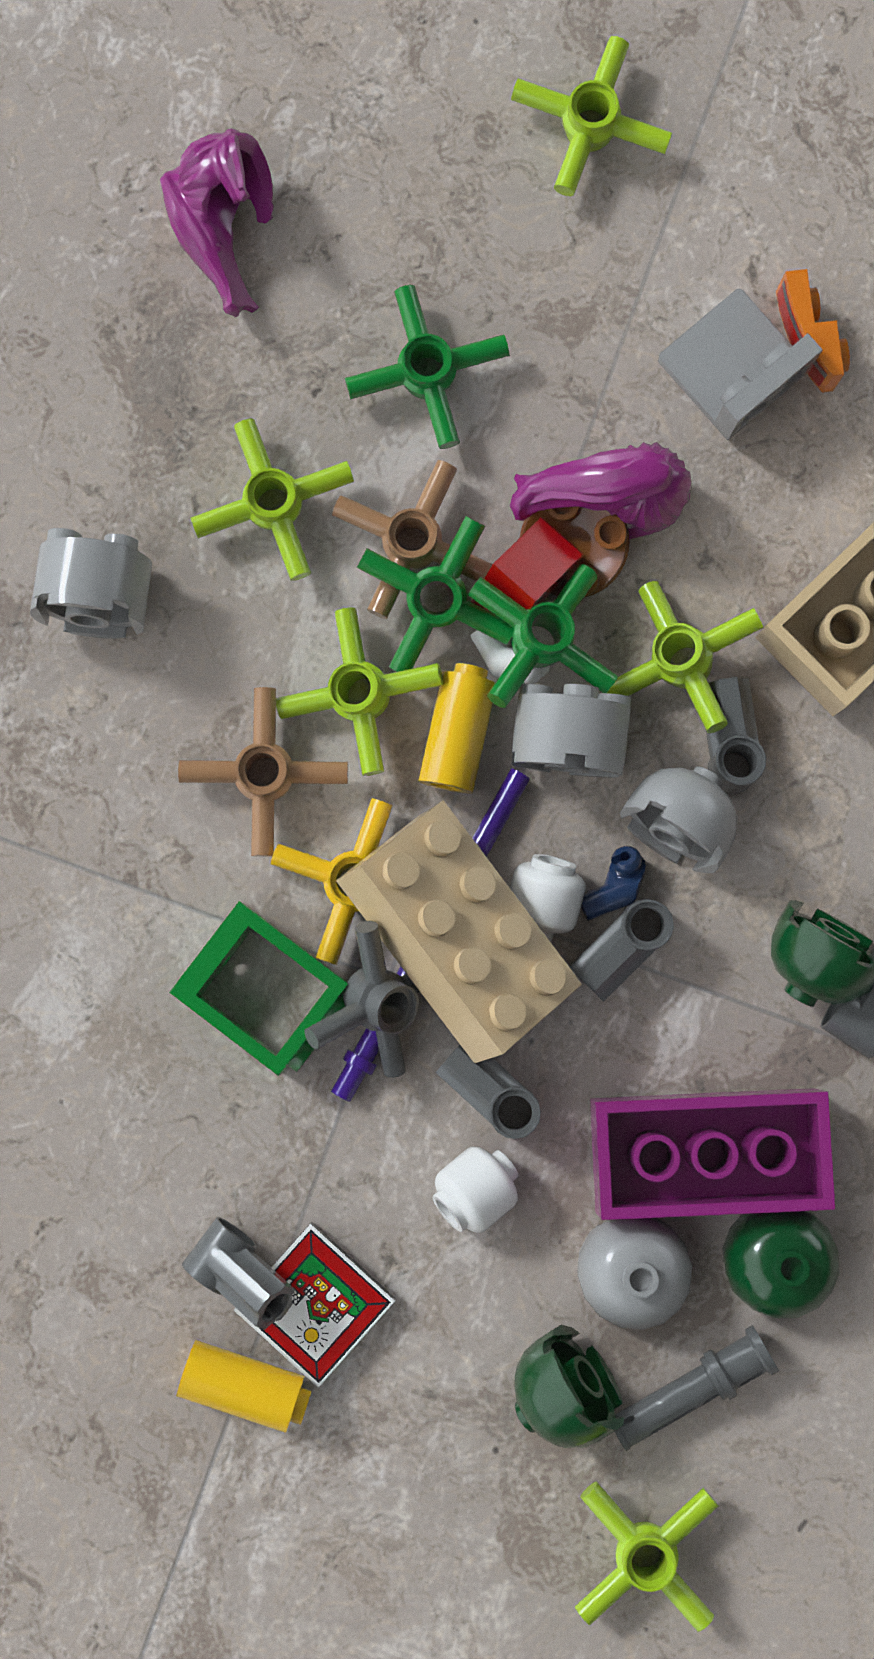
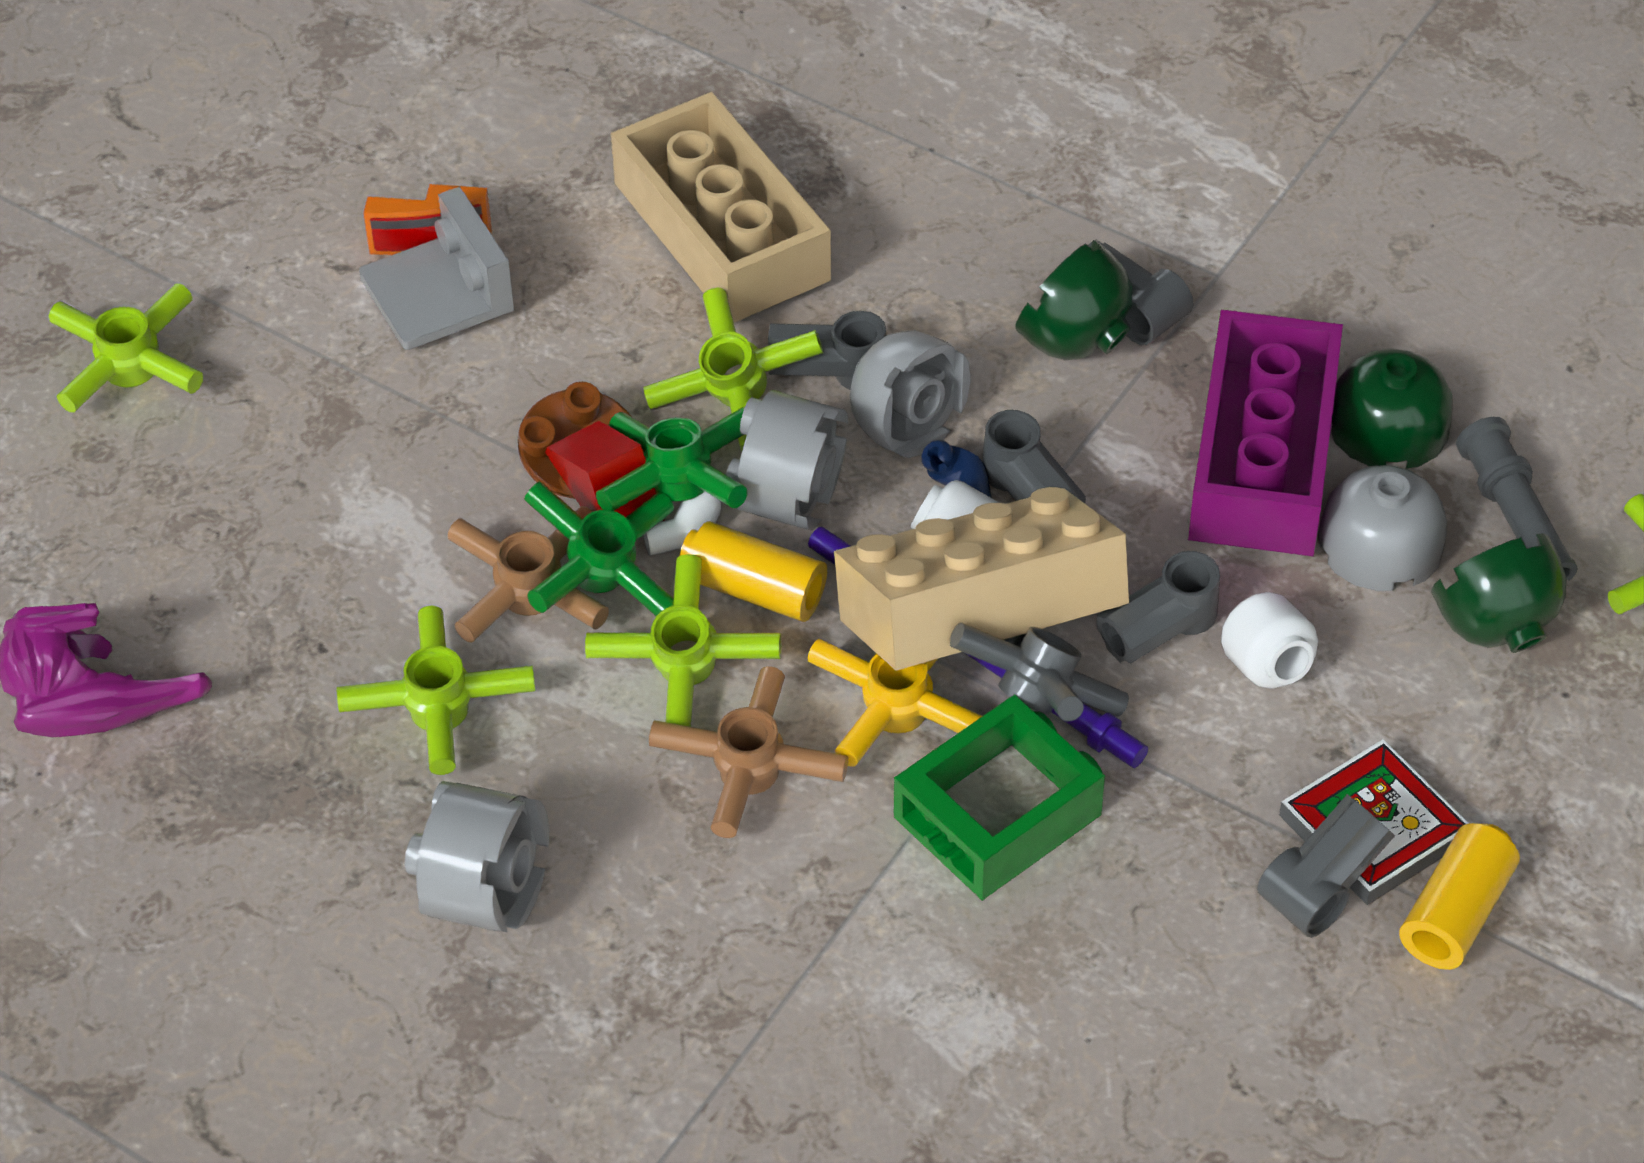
camera: 75 degrees left, 35 degrees down
(421, 346) = (339, 528): green bar -> none
(637, 484) = (534, 363): magenta hair -> none

